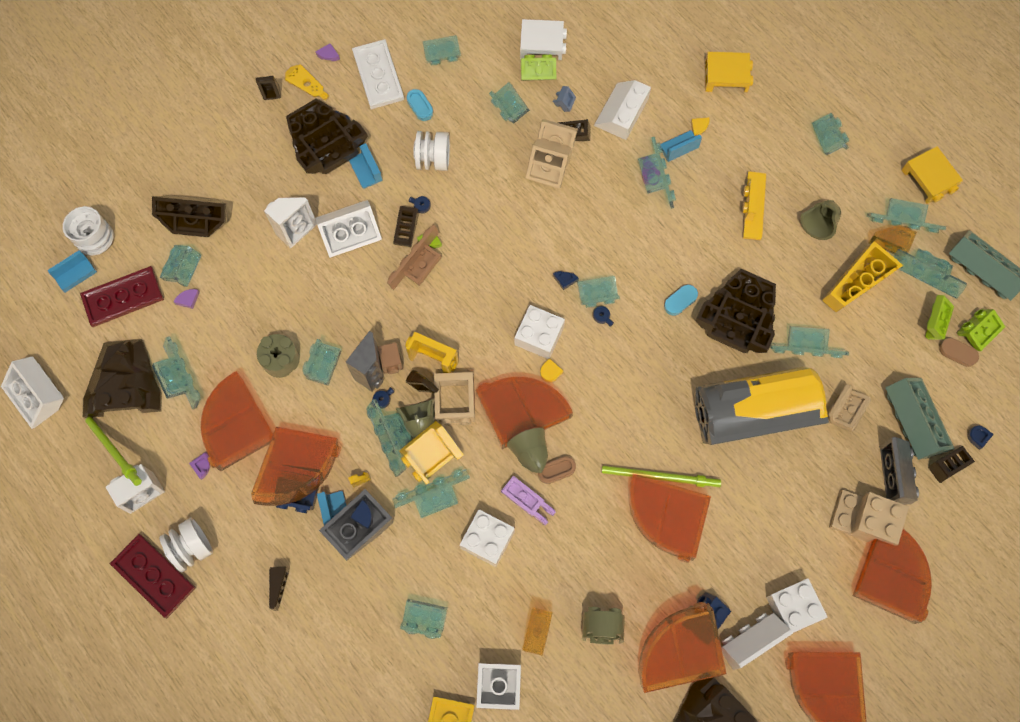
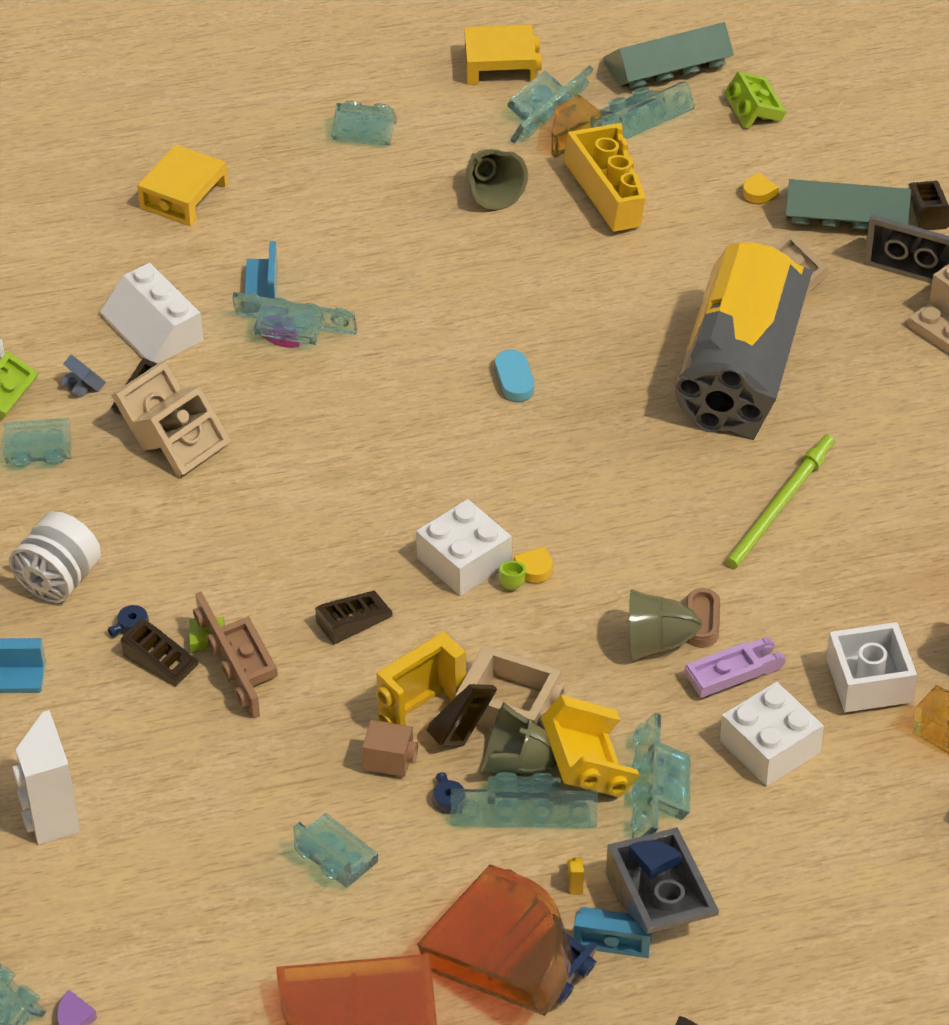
camera: 65 degrees left, 25 degrees down
(282, 348) = (282, 904): olive brick -> none
(348, 228) = (108, 726): white slope -> none
(366, 363) = (389, 762): flat silver slope -> none
(424, 619) = (861, 864): clear light blue bracket -> none
(476, 296) = (338, 630): none -> dark brown slope
(521, 405) = (577, 616): clear orange brick -> none
(539, 363) = (512, 574): none -> lime hinge
(554, 572) = (871, 667): none -> white brick
(565, 279) = (390, 493): dark blue tile -> none
(598, 290) = (440, 457): clear light blue bracket -> none
(602, 319) = (480, 471): dark blue piece -> none
(668, 515) = (848, 511): clear orange brick -> none
(699, 125) = (244, 248): yellow tile -> none
(741, 313) = (587, 313): dark brown wedge -> none
(754, 205) = (418, 238): yellow bracket -> none
(808, 340) = (665, 265): clear light blue bracket -> none
(905, 363) = (759, 189): none -> yellow tile
(939, 319) = (717, 130): lime bracket -> none
(959, 352) = (774, 134): medium nougat tile -> none
(979, 436) = (904, 164): dark blue tile -> none

